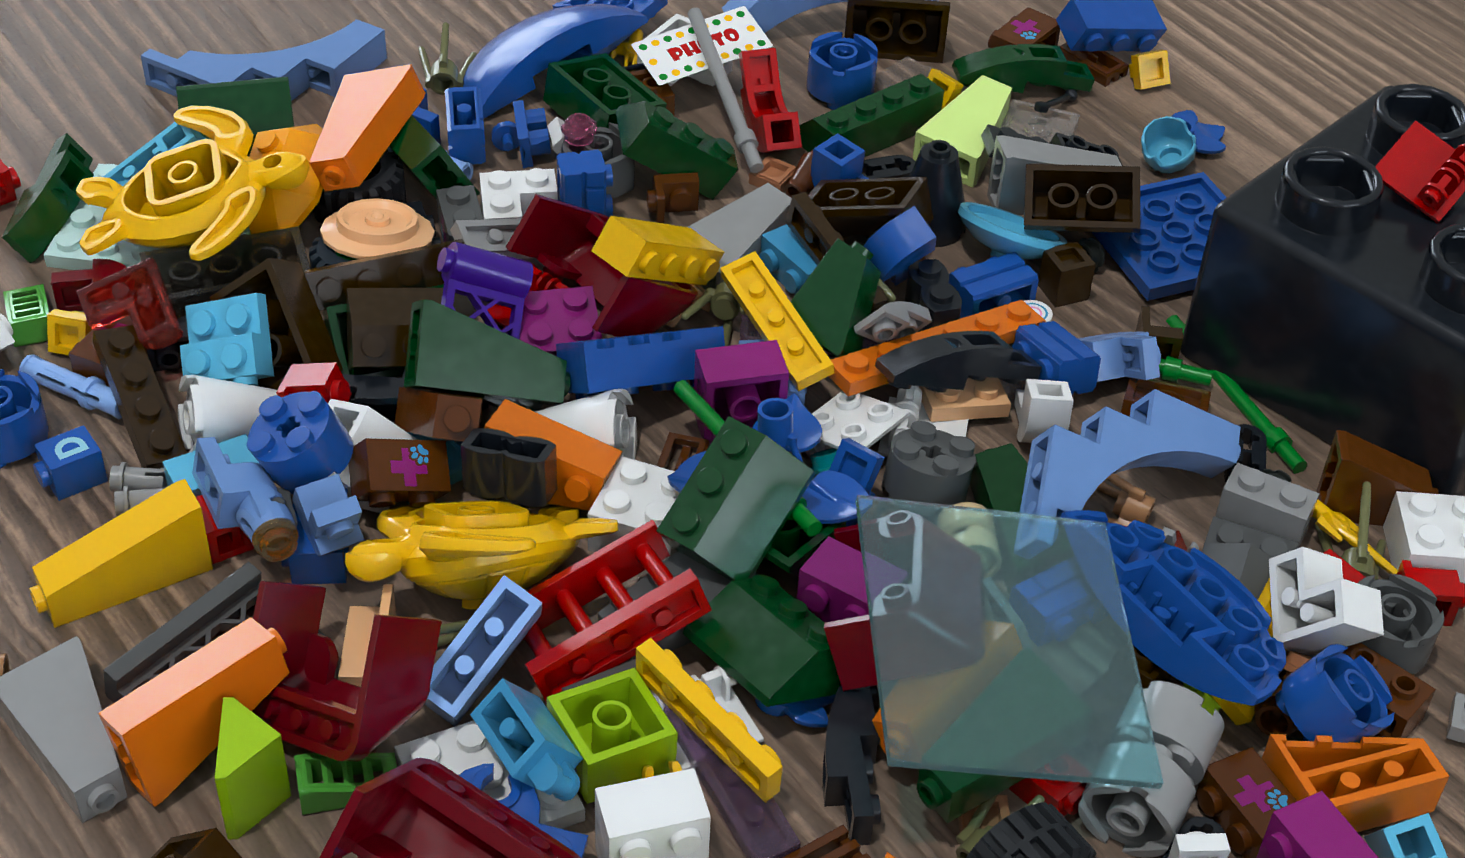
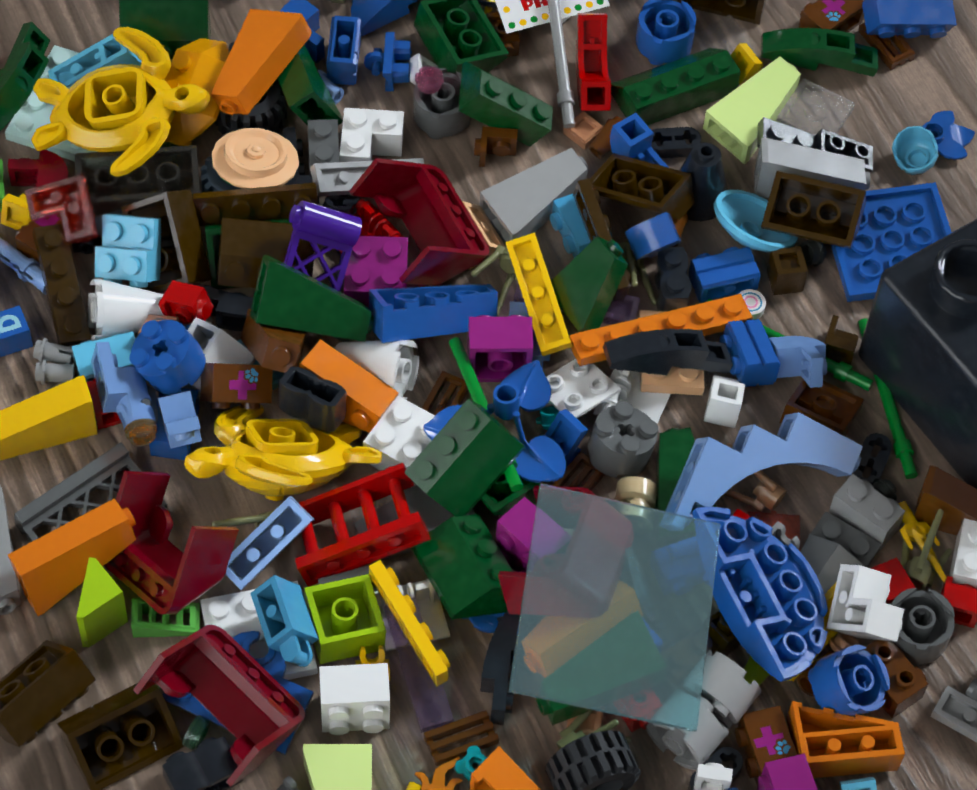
camera: 10 degrees right, 15 degrees up
(358, 636) = (195, 510): light nougat panel -> none
(584, 181) = (424, 134): blue brick -> none
(657, 251) = (461, 221): yellow brick -> none
(893, 321) = (632, 306): light grey slope -> none
(1069, 96) = (822, 93): black hinge -> none
(1150, 69) = (930, 63): yellow tile -> none

